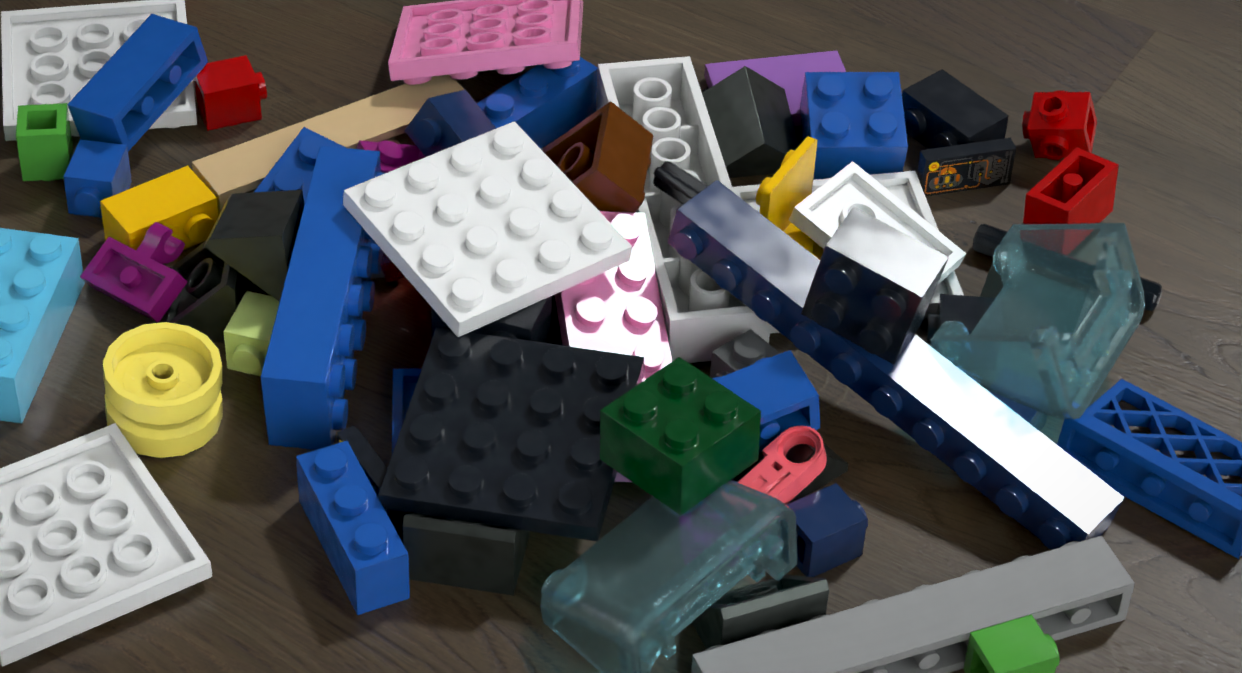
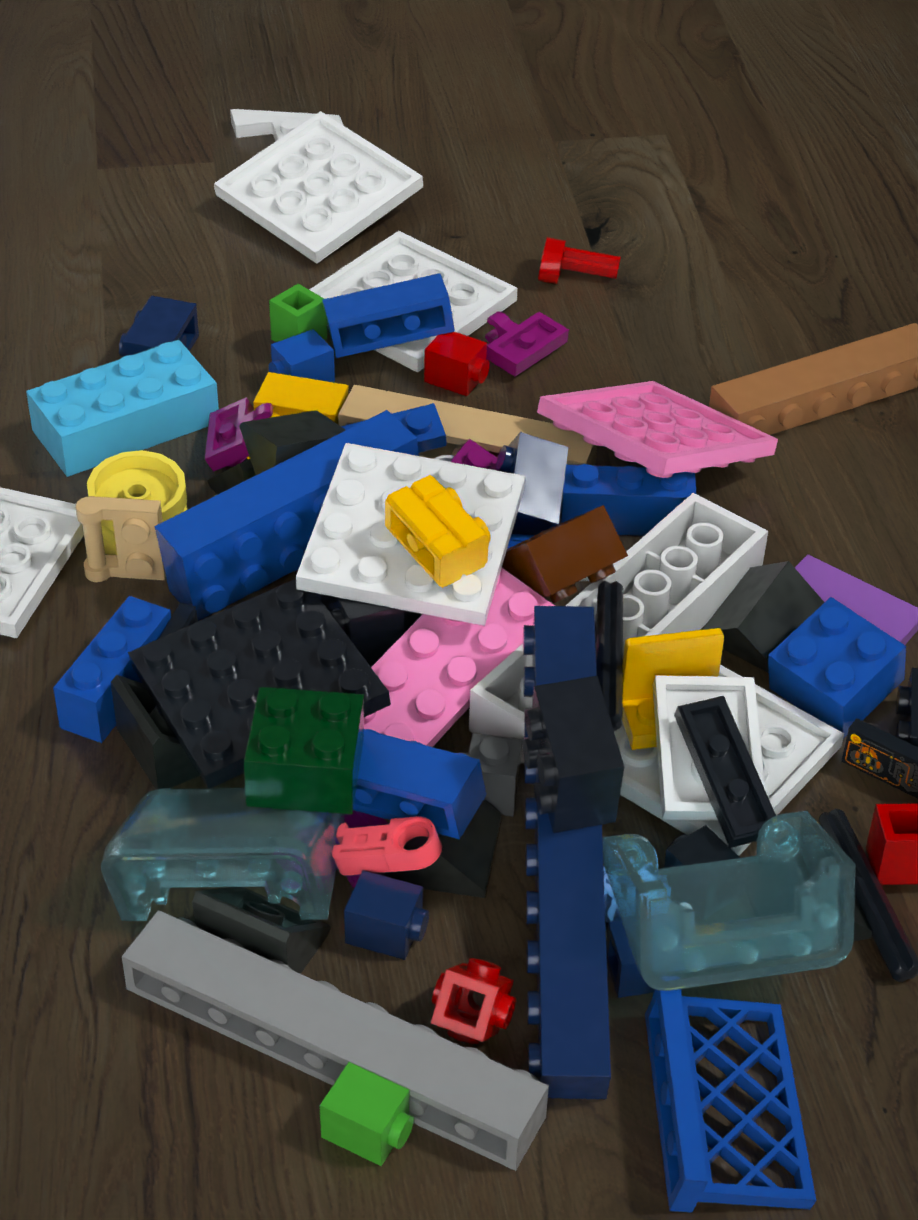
camera: 50 degrees right, 0 degrees up
(219, 415) = (134, 534): none -> tan plate
(255, 35) = (522, 345): none -> magenta plate
(538, 201) = (437, 530): none -> yellow brick
(967, 261) = (725, 769): none -> black tile
(971, 530) = (456, 1006): none -> red brick

